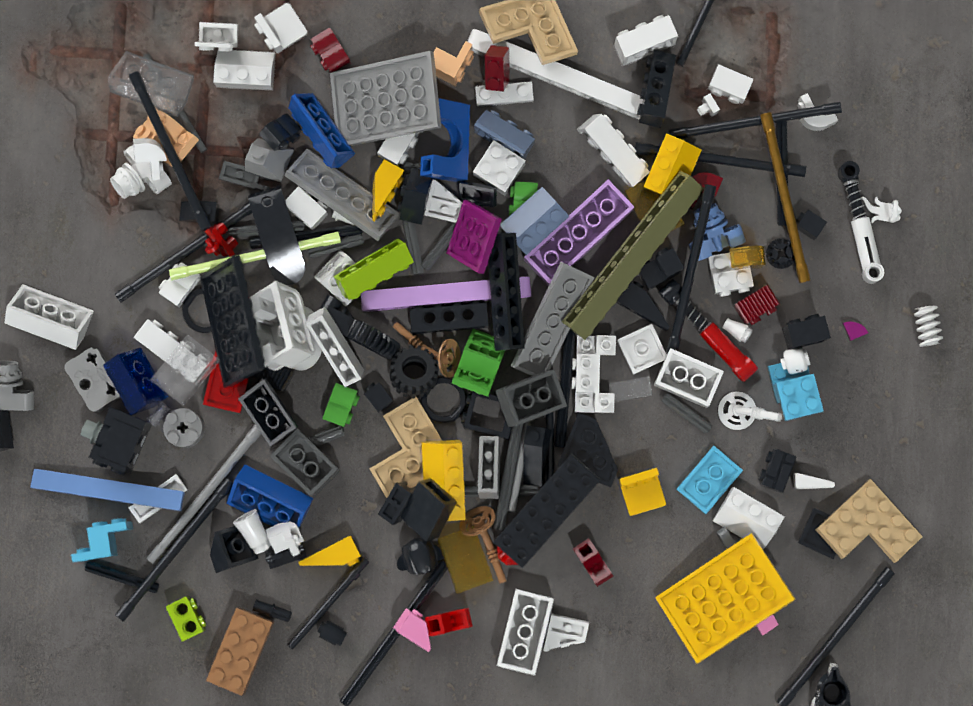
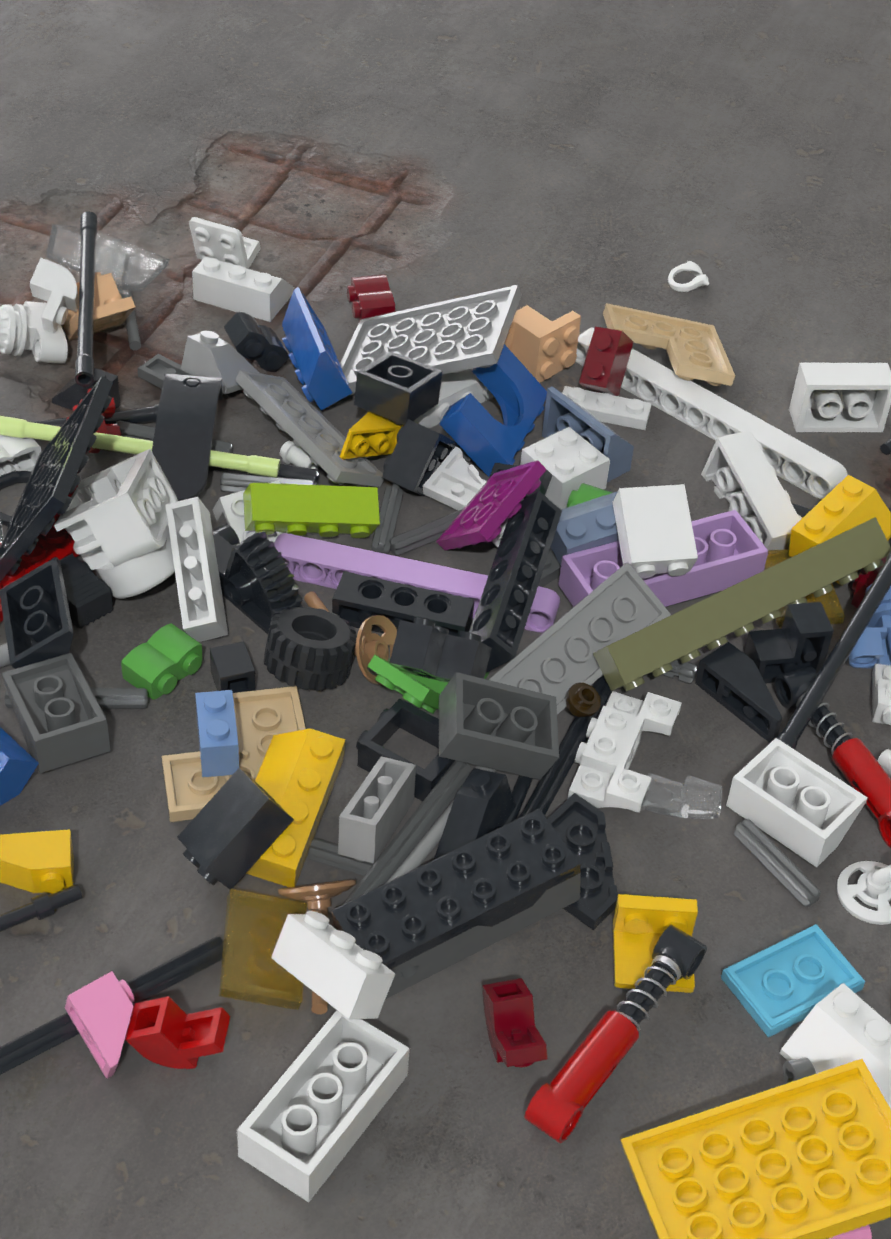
camera: 15 degrees right, 40 degrees down
(280, 27) = (314, 267): white bracket -> none
(306, 208) = (246, 428): white brick -> none
(387, 159) = (397, 388): none -> black brick
(393, 452) = (217, 733): none -> medium blue brick
(396, 503) = (177, 809): black hinge -> none
(419, 556) = (179, 911): black piece -> none
(459, 411) = (348, 690): black piece -> none
(489, 370) = (435, 655): none -> black brick
(505, 571) = (333, 965): none -> white brick
(560, 352) = (582, 700): none -> dark brown plate
(564, 632) = (406, 1141): white wing -> none
(572, 233) = (655, 530): none -> white brick
(638, 548) = (560, 1104): none -> red piece
(642, 349) = (719, 744): white plate -> none
(655, 114) = (843, 443): black brick -> none

